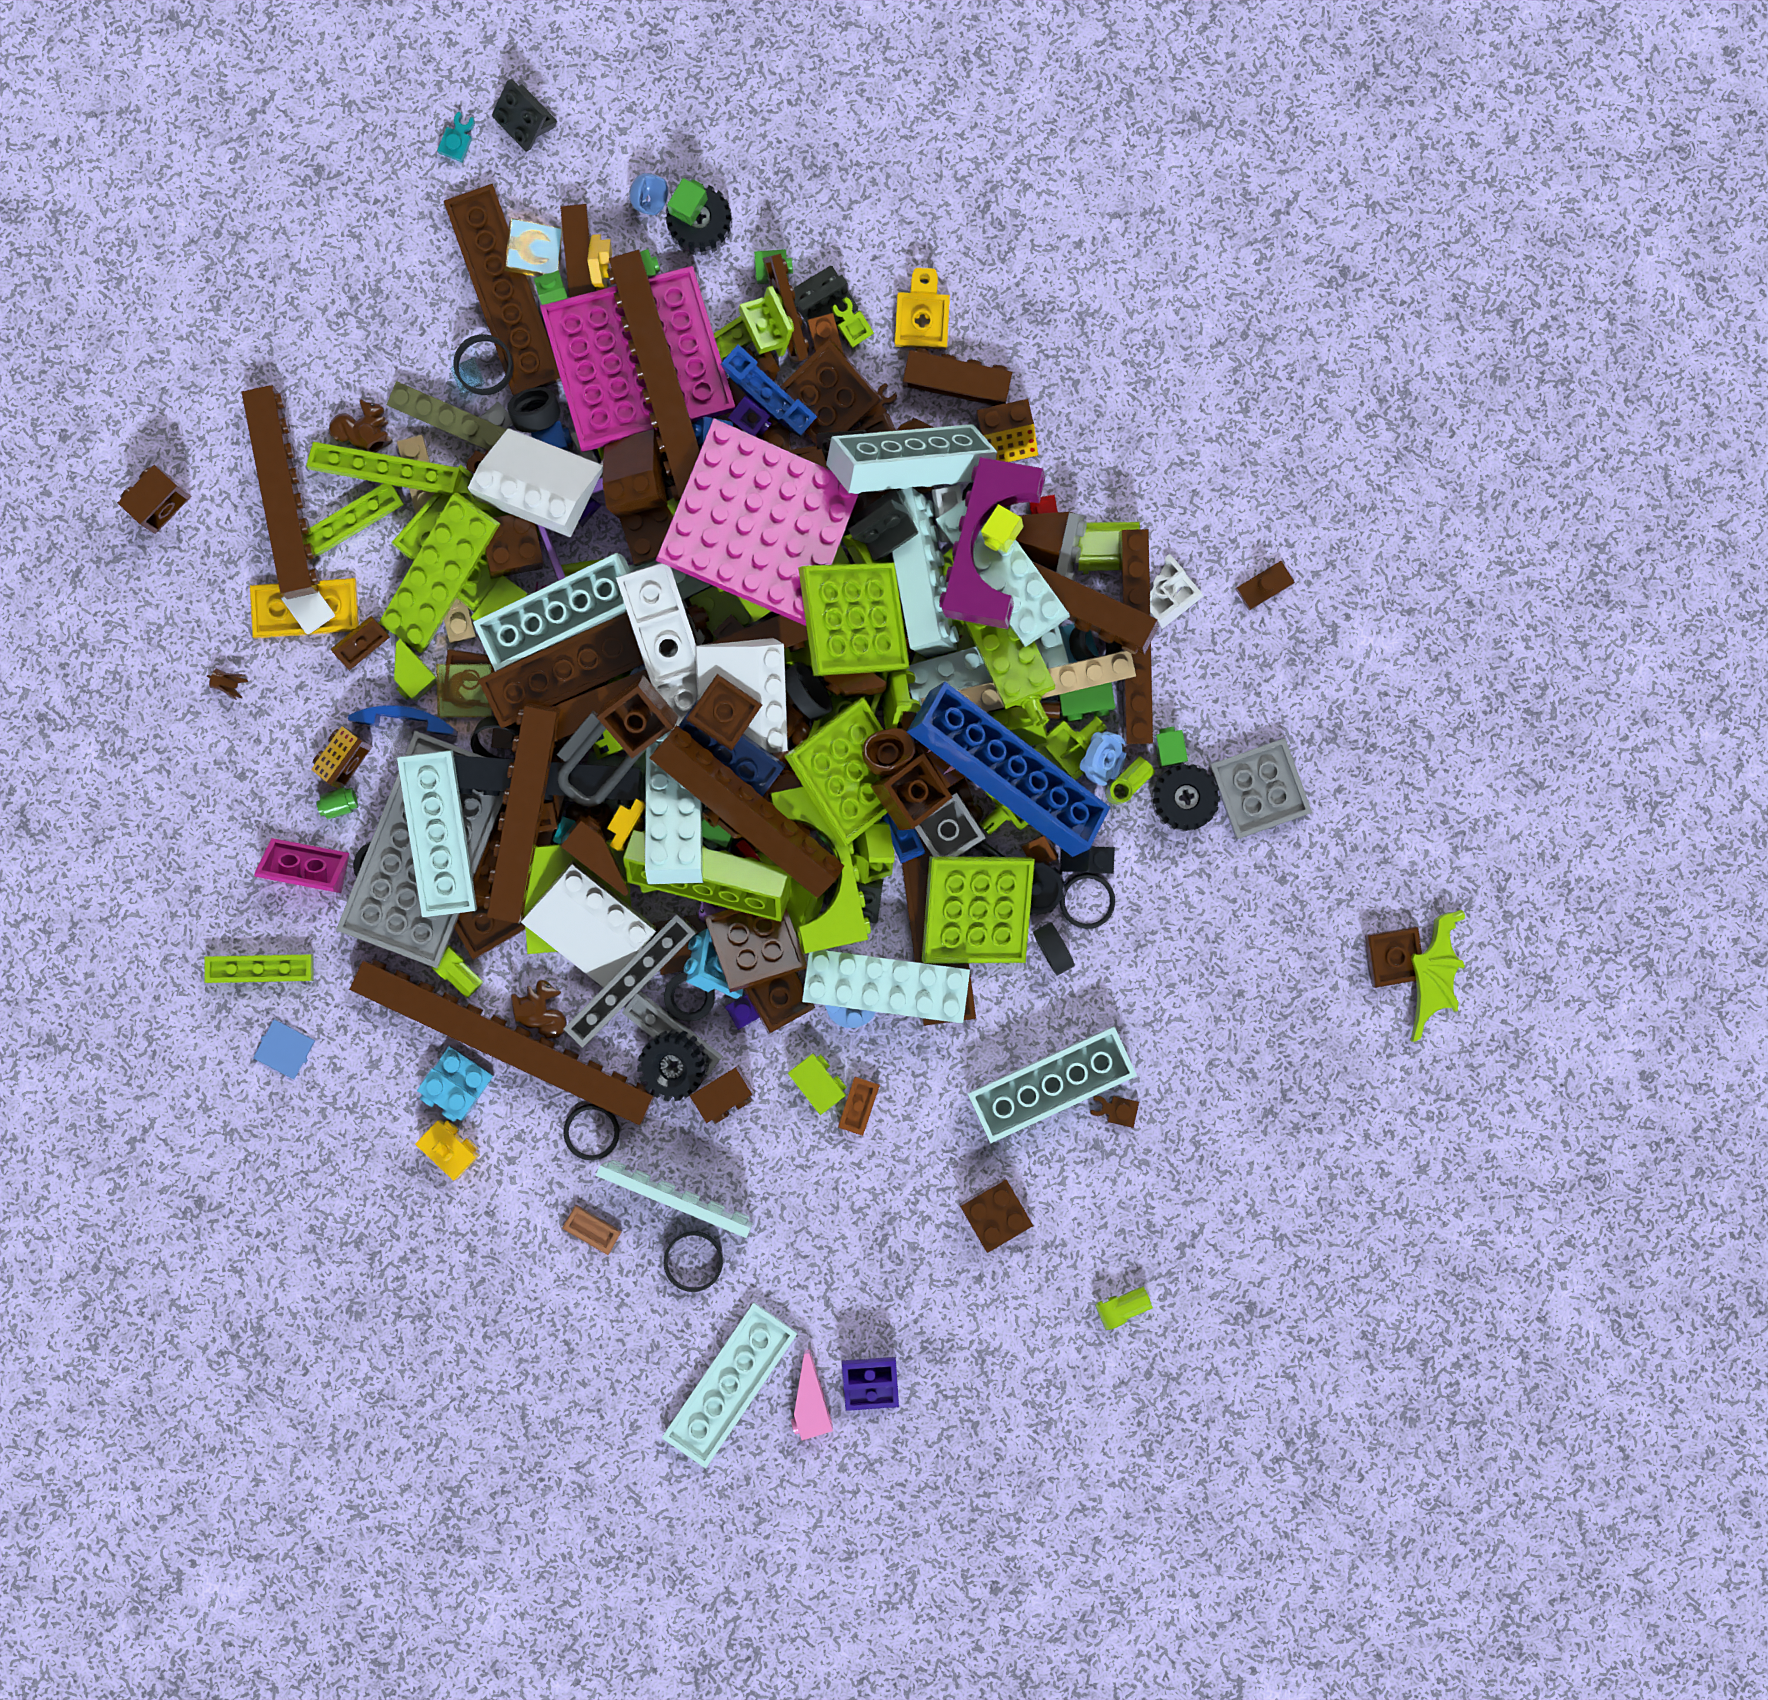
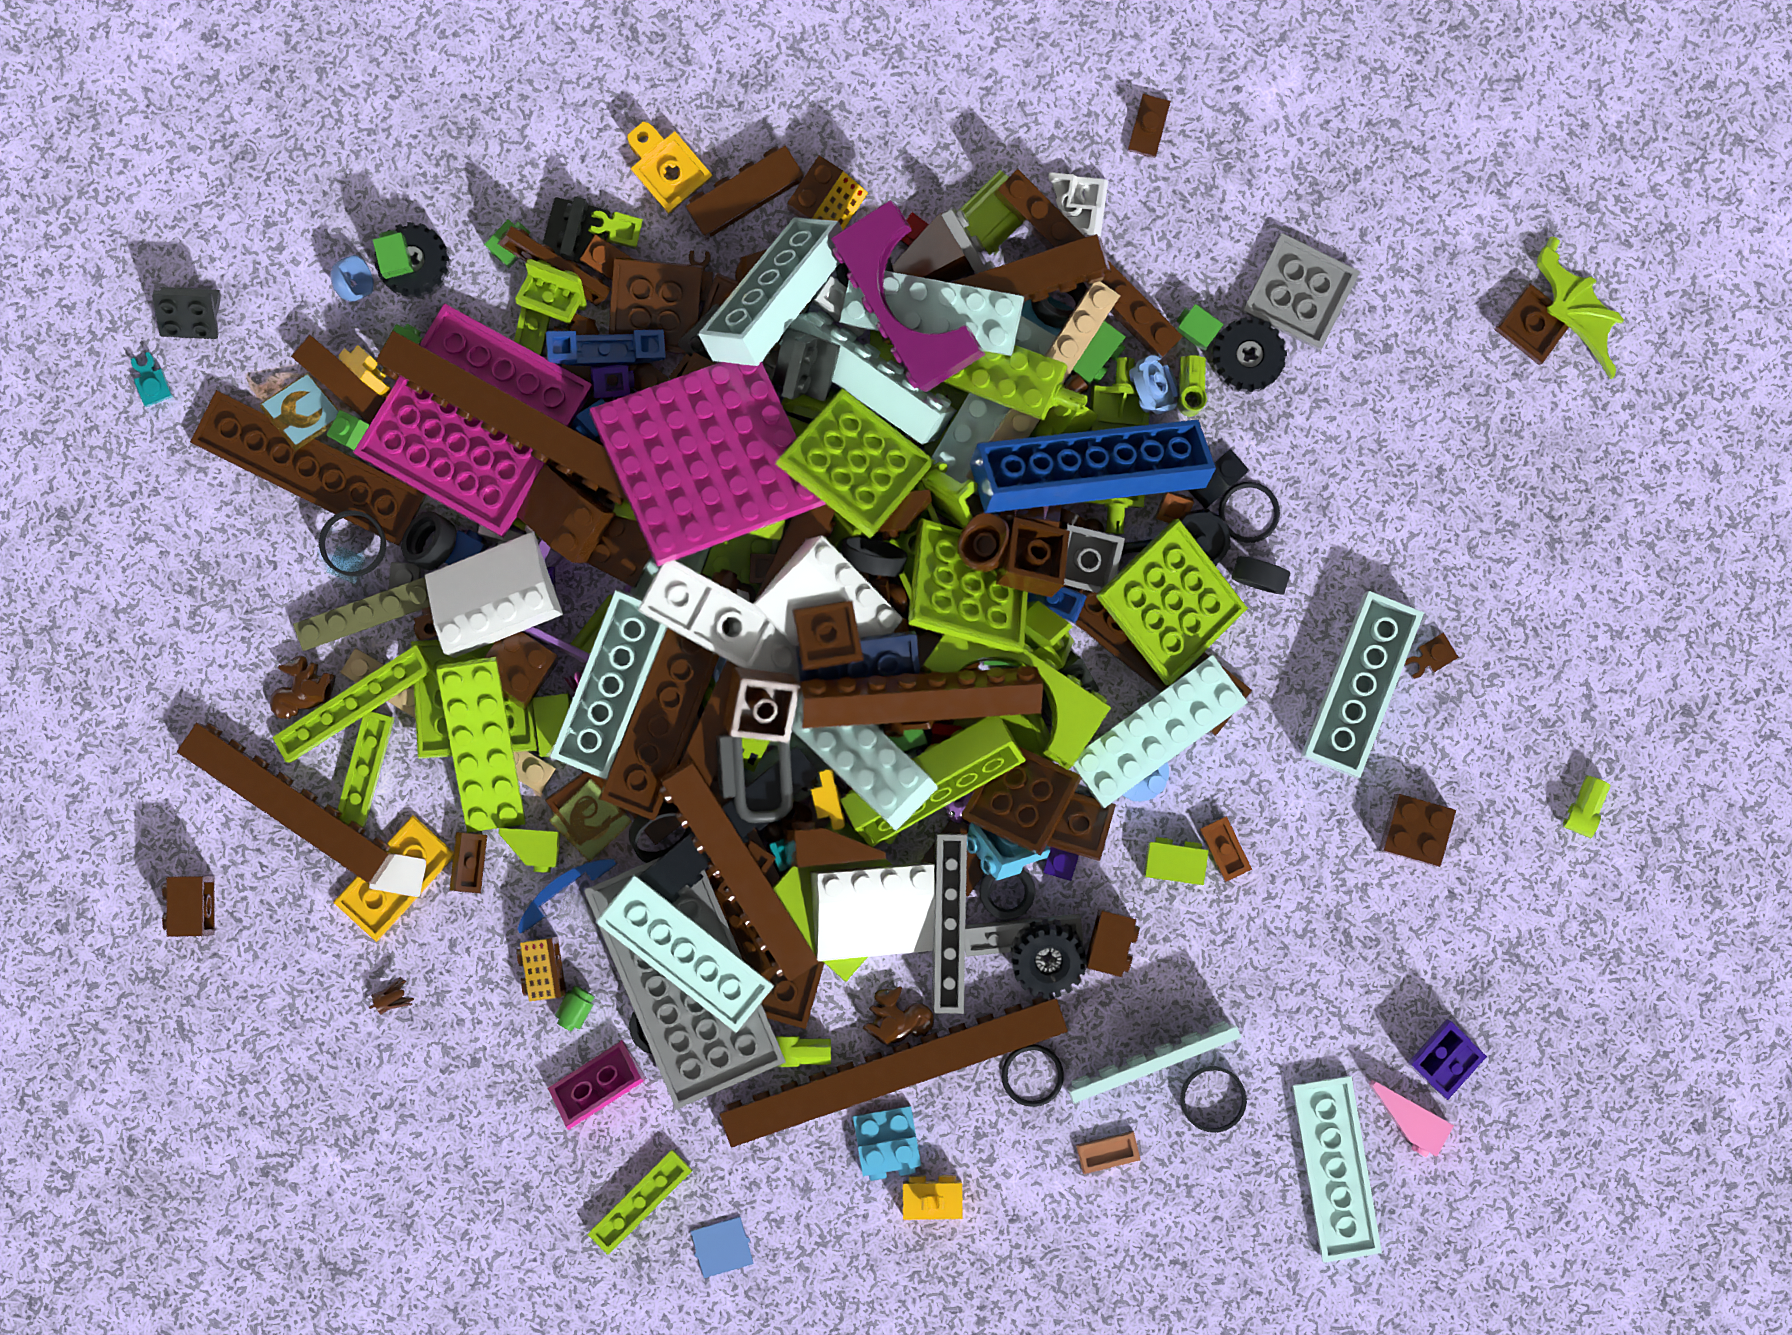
camera: 45 degrees left, 0 degrees up
(1001, 529) = (903, 279): neon yellow brick -> none

